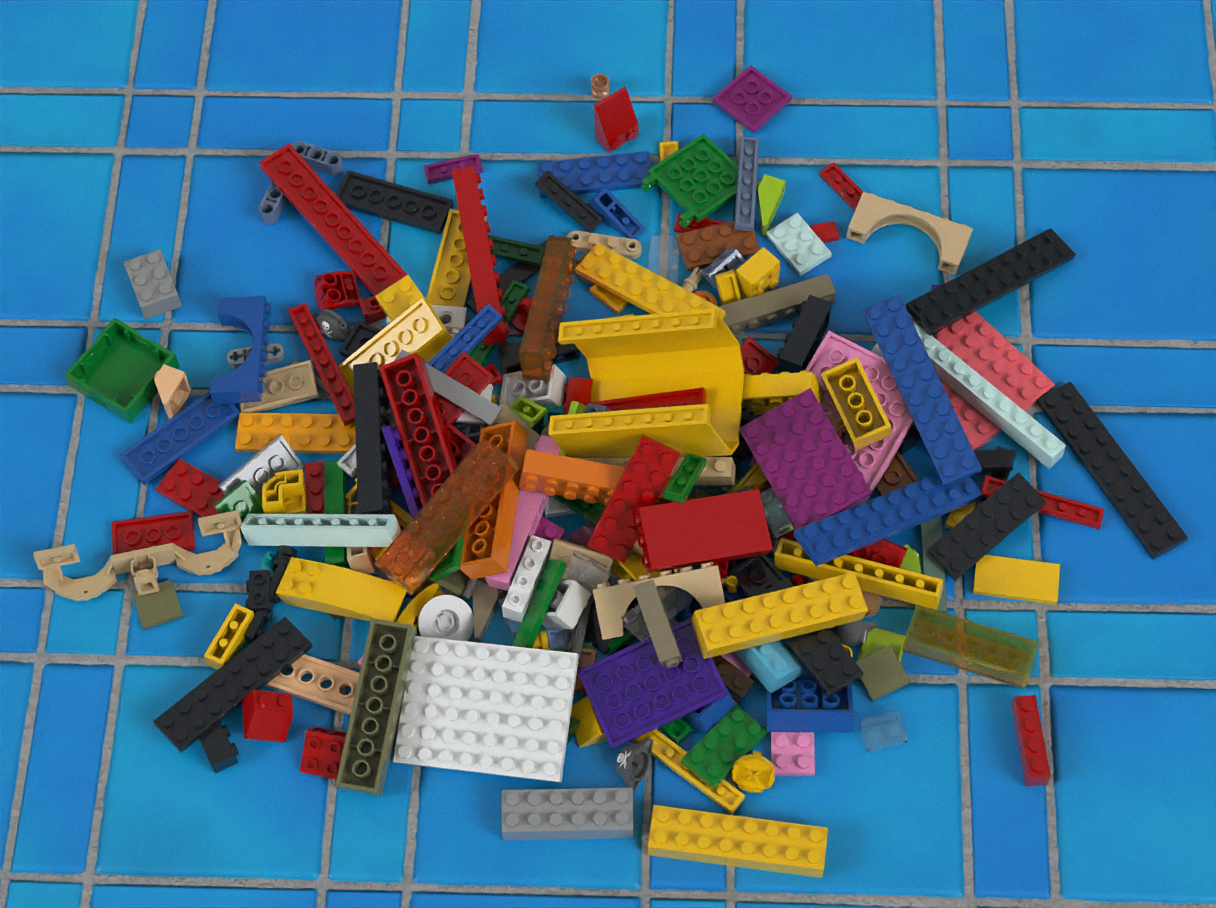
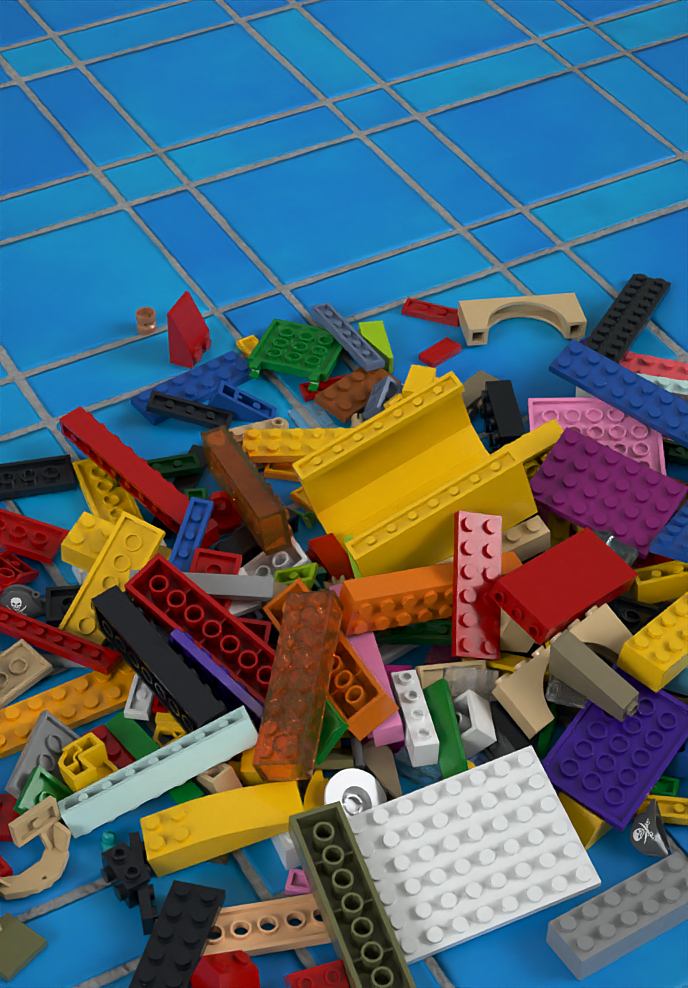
camera: 35 degrees left, 20 degrees down
(229, 637) = (125, 931): yellow brick -> none
(284, 555) = (125, 824): black wheel -> none
(371, 310) = (54, 572): red brick -> none
(443, 170) = (41, 437): magenta tile -> none
(685, 478) = (515, 545): green tile -> none
(752, 99) = (296, 281): magenta plate -> none
(798, 244) = (429, 357): light aqua plate -> none
(856, 404) = (609, 429): yellow brick -> none

